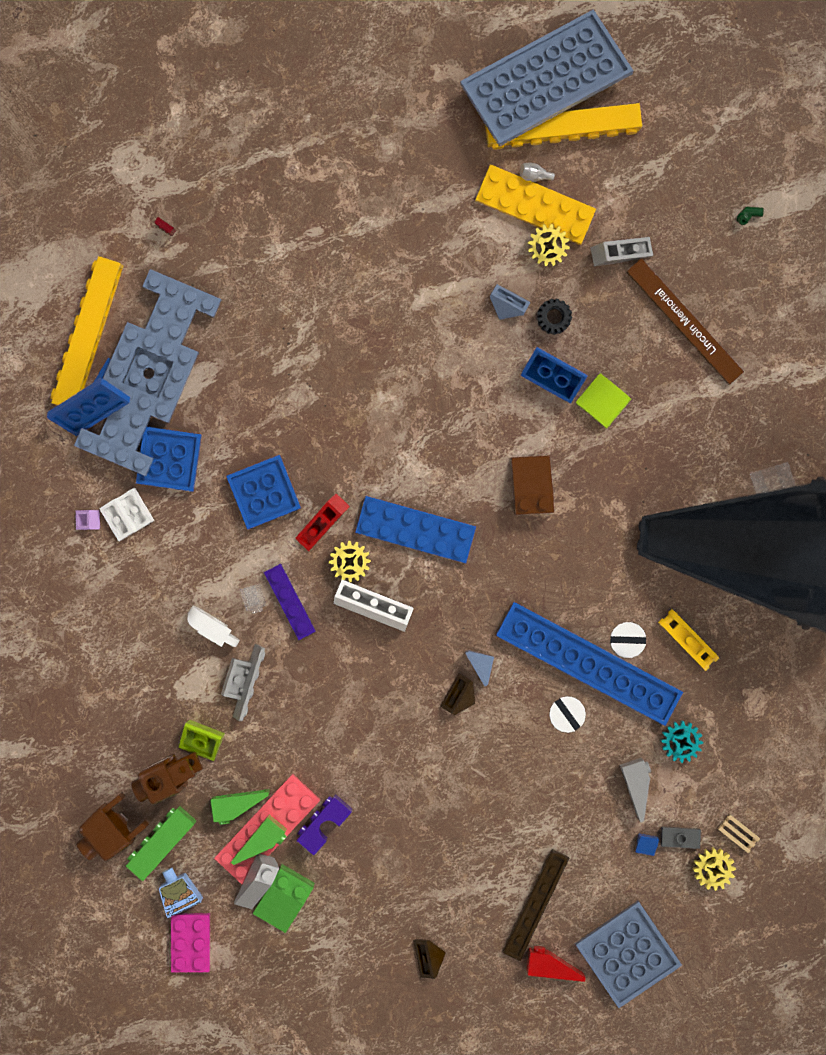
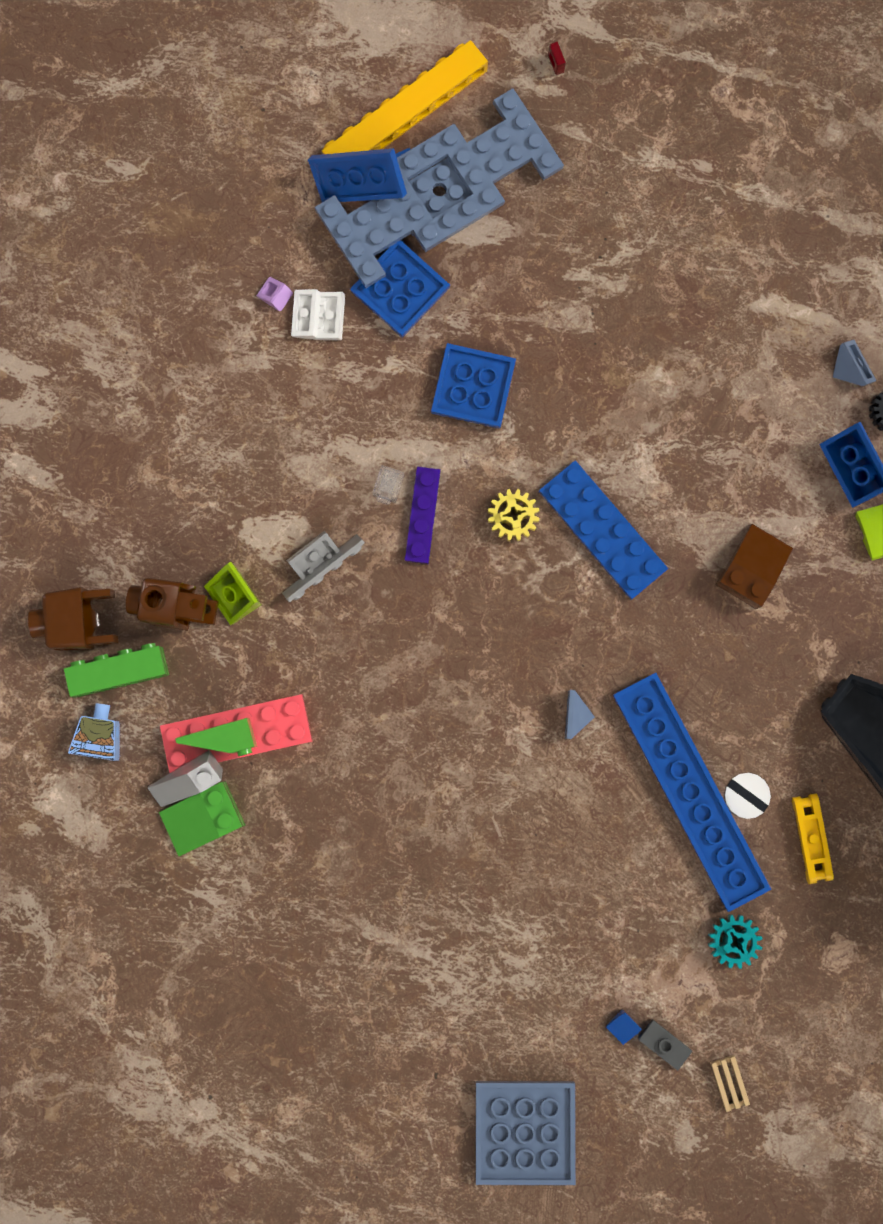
camera: 30 degrees right, 5 degrees down
(190, 942) = (73, 798): dark pink plate -> none
(211, 627) = (324, 484): white piece -> none
(232, 805) = (217, 684): bright green slope -> none
(322, 522) = (513, 456): red slope -> none
(334, 810) = (277, 771): dark purple arch -> none
(373, 605) = (507, 575): white brick -> none
(428, 957) = (311, 988): dark brown slope -> none
(459, 695) = (532, 732): dark brown slope -> none
(536, 904) = (462, 1010): dark brown tile -> none
(548, 965) = (430, 1082): red slope -> none
(567, 714) = (631, 830): white sticker -> none
(637, 782) = (658, 952): light grey slope -> none
(716, 861) = (671, 1109): light yellow gear -> none

